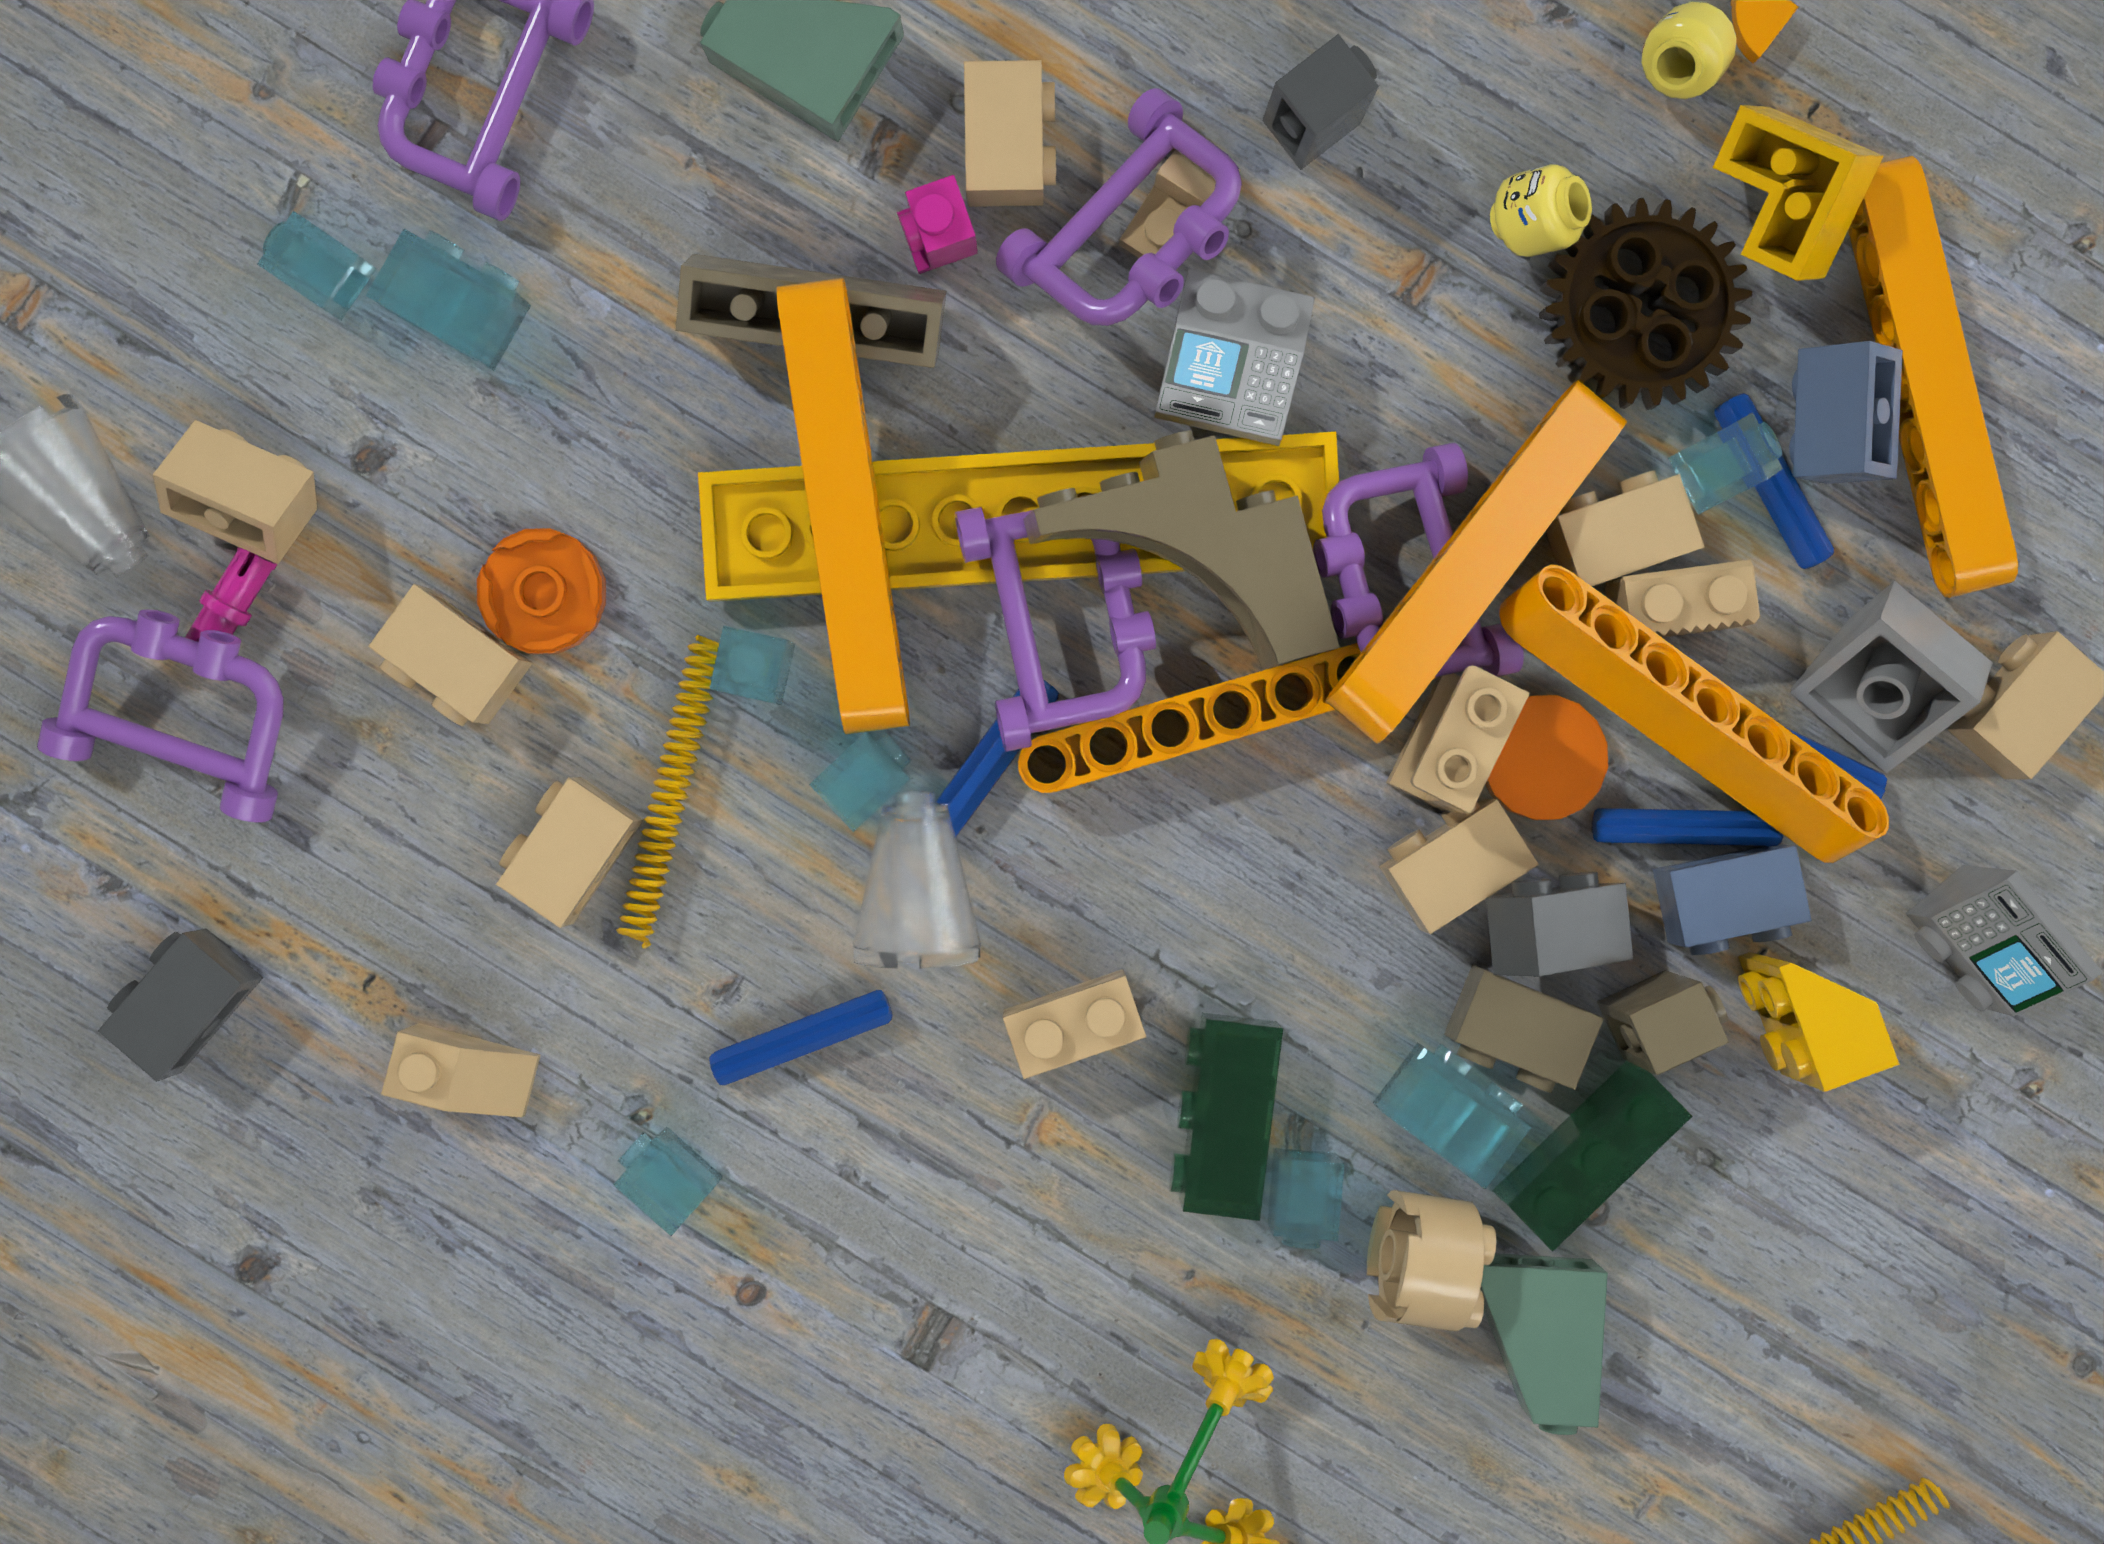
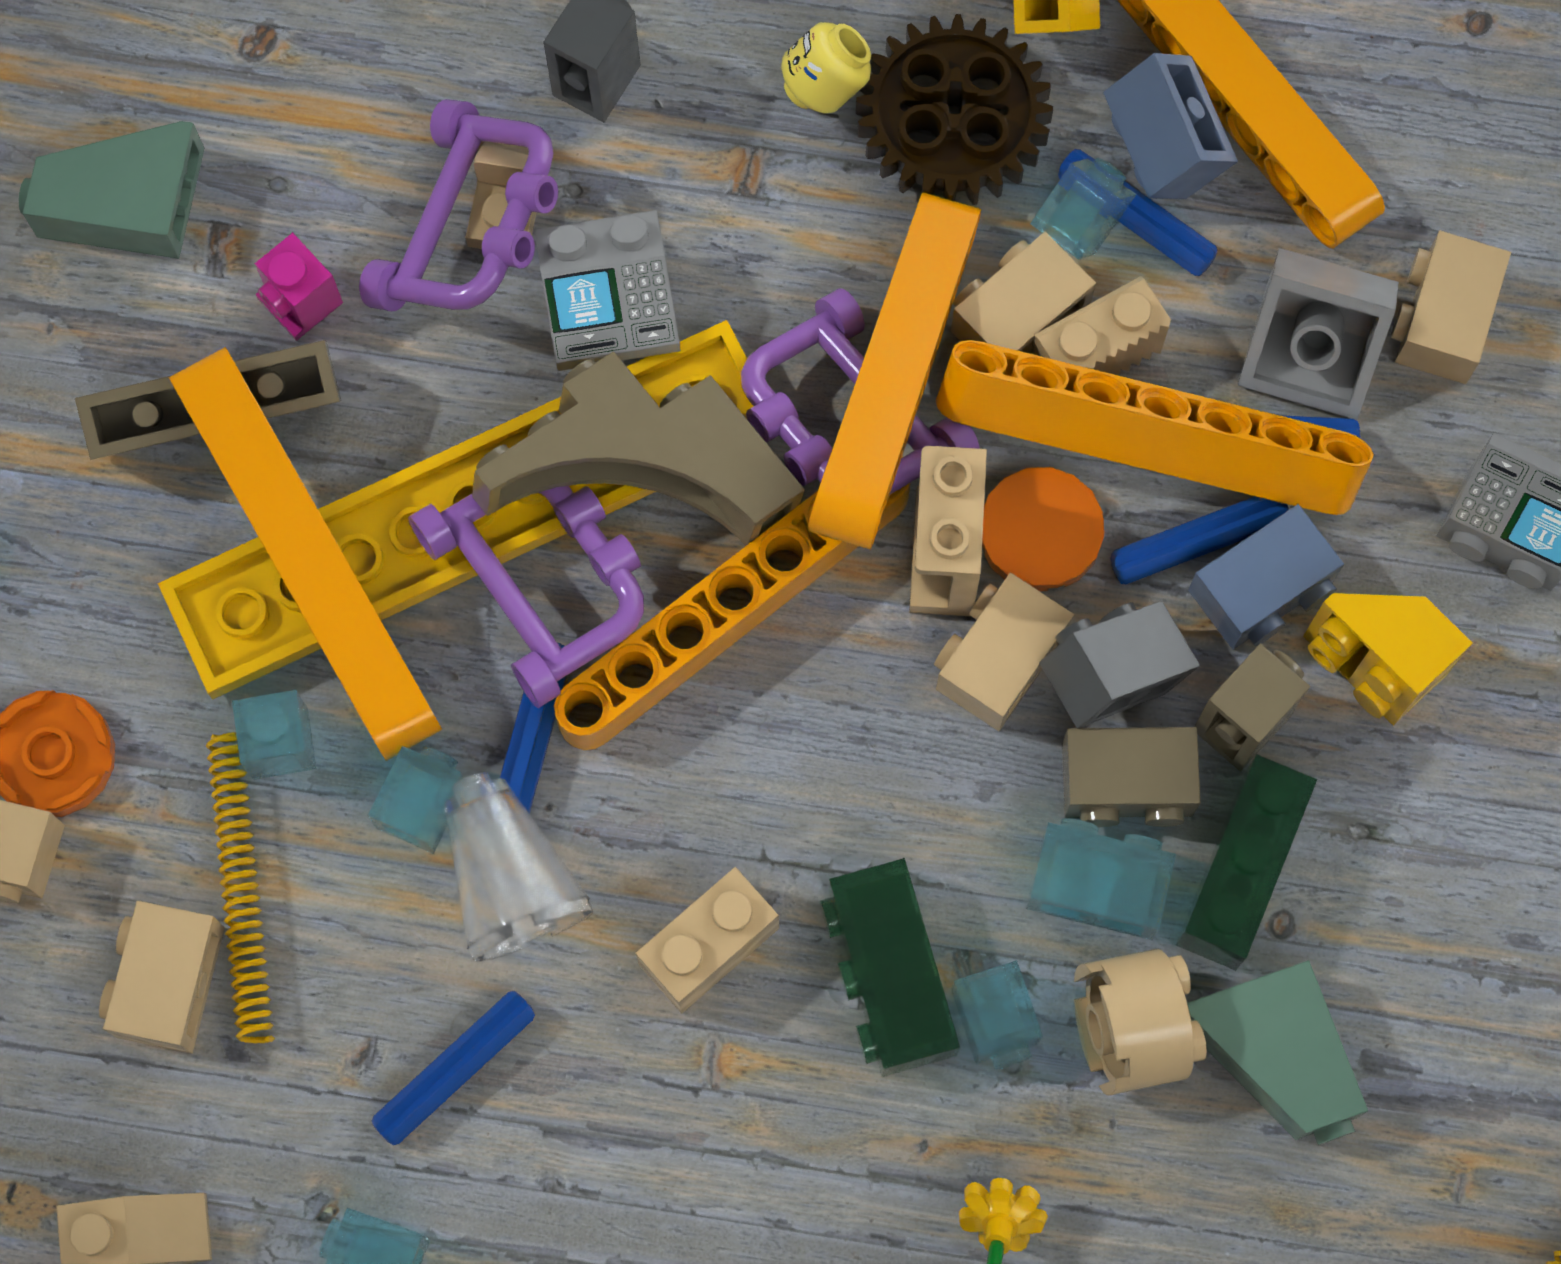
camera: 20 degrees left, 15 degrees down
(1005, 133) = (327, 188): tan brick -> none

